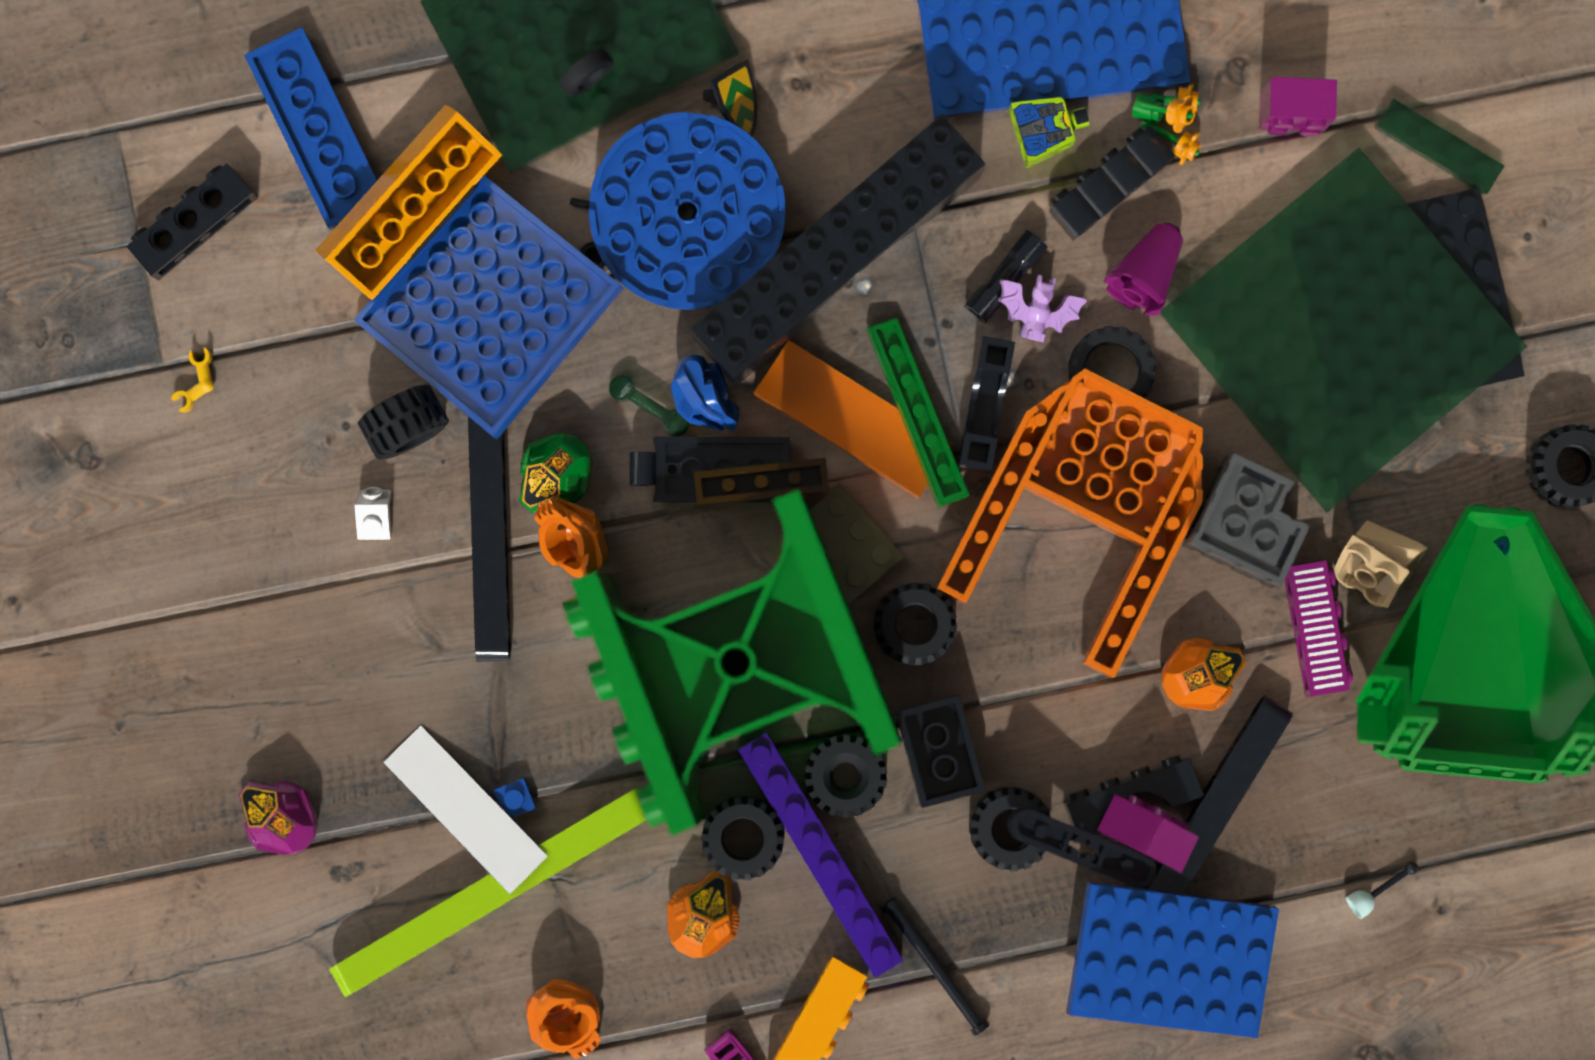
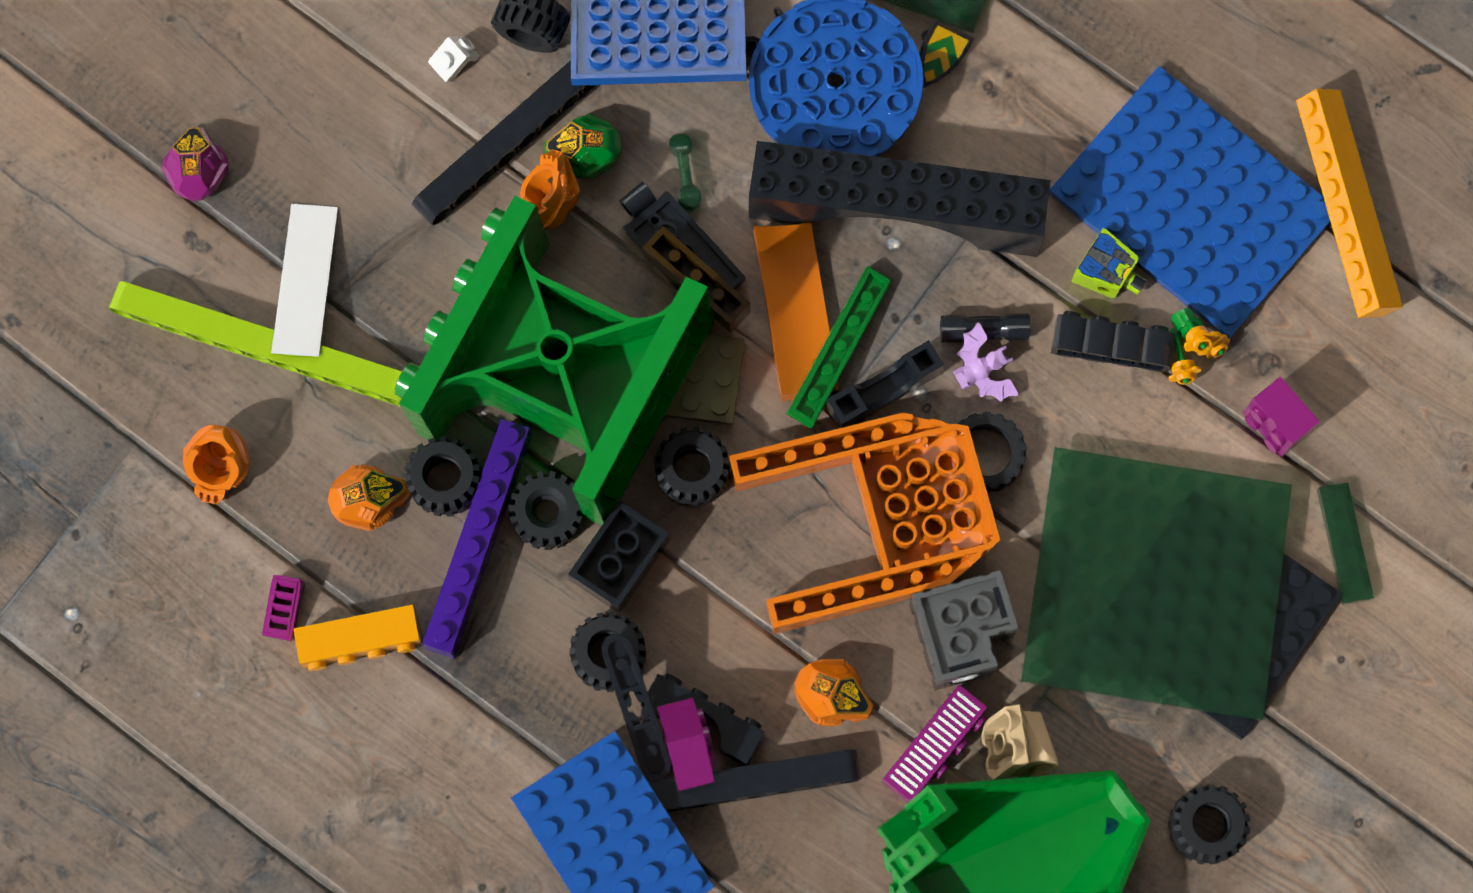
camera: 50 degrees right, 10 degrees down
(515, 798) = (341, 308): blue plate -> none
(703, 394) = (723, 195): blue helmet -> none
(977, 1023) = (467, 685): black bar -> none
(1147, 270) = (1075, 414): magenta cone -> none

